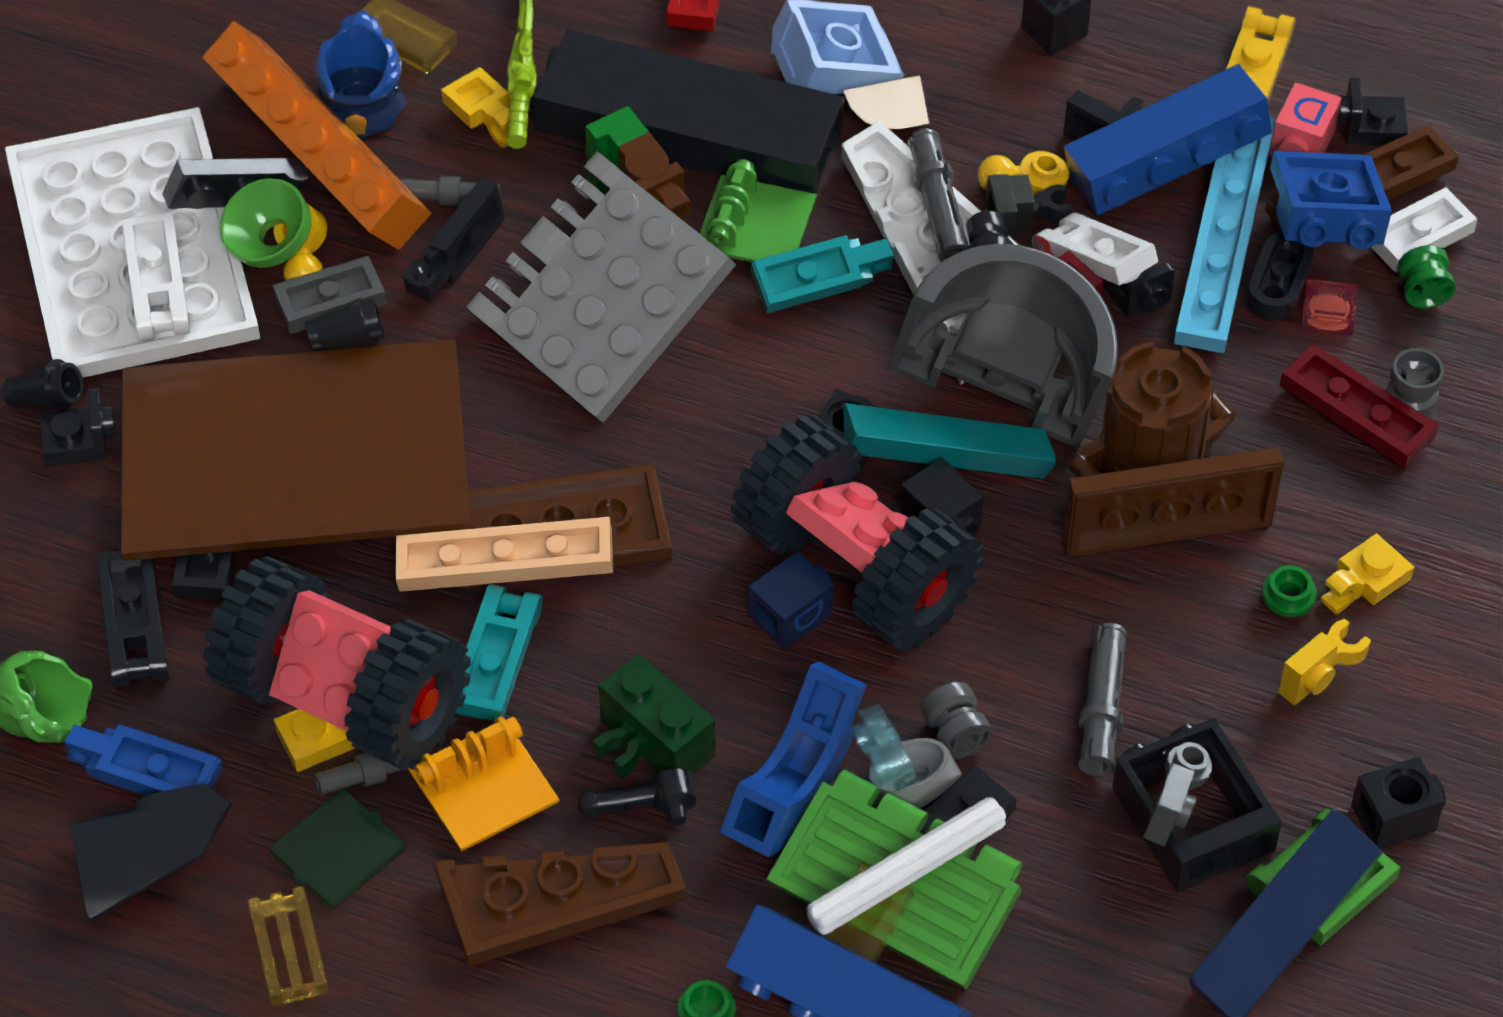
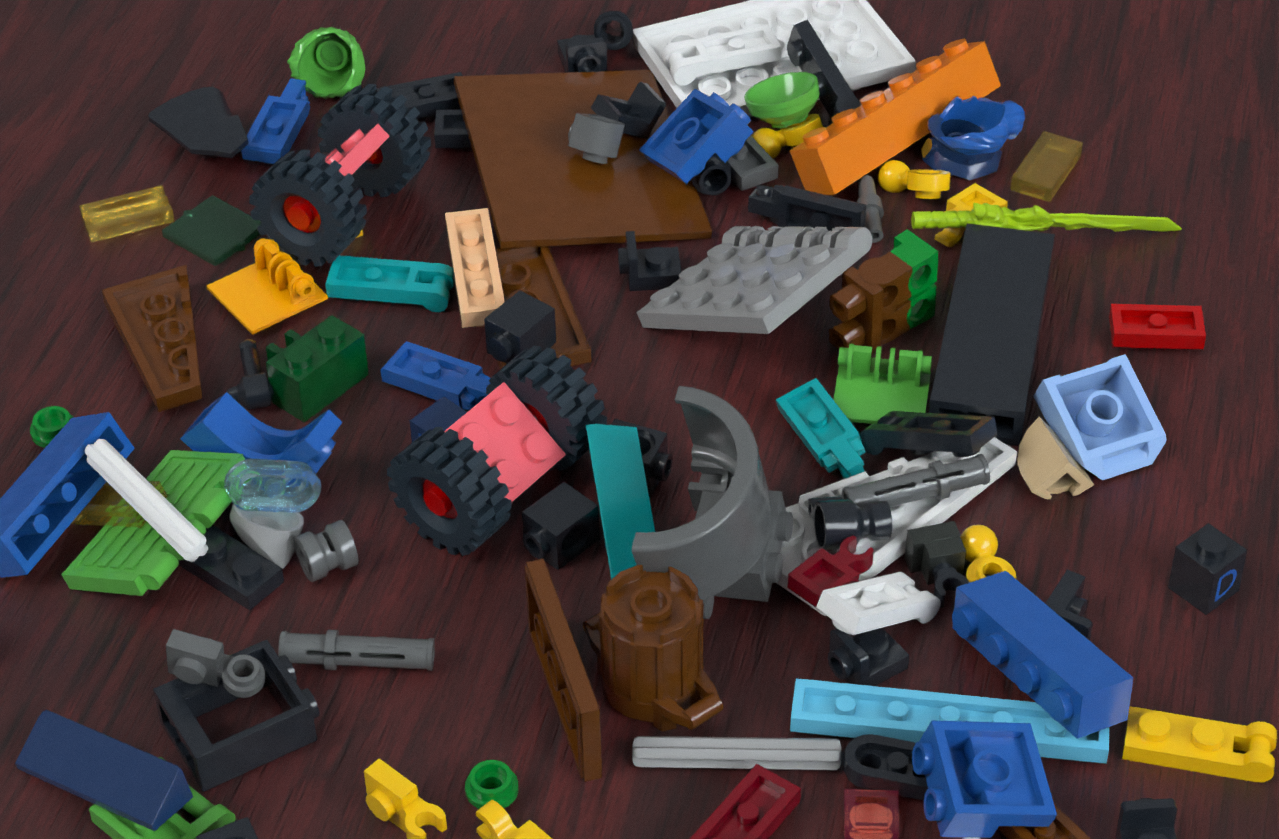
camera: 85 degrees right, 10 degrees down
(244, 376) = (637, 113): none -> black bracket
(301, 407) = (596, 136): none -> dark grey plate
(334, 309) = (695, 132): none -> blue plate
(418, 133) = (896, 177): none -> yellow plate
(512, 399) = (648, 268): none -> black bracket
(643, 510) = (518, 326): none -> black brick
(681, 605) = (436, 375): none -> blue hinge
(863, 175) = (929, 433): none -> black plate
(1253, 382) = (736, 752): none -> light grey axle
(1306, 121) = (1106, 776): coral brick -> none

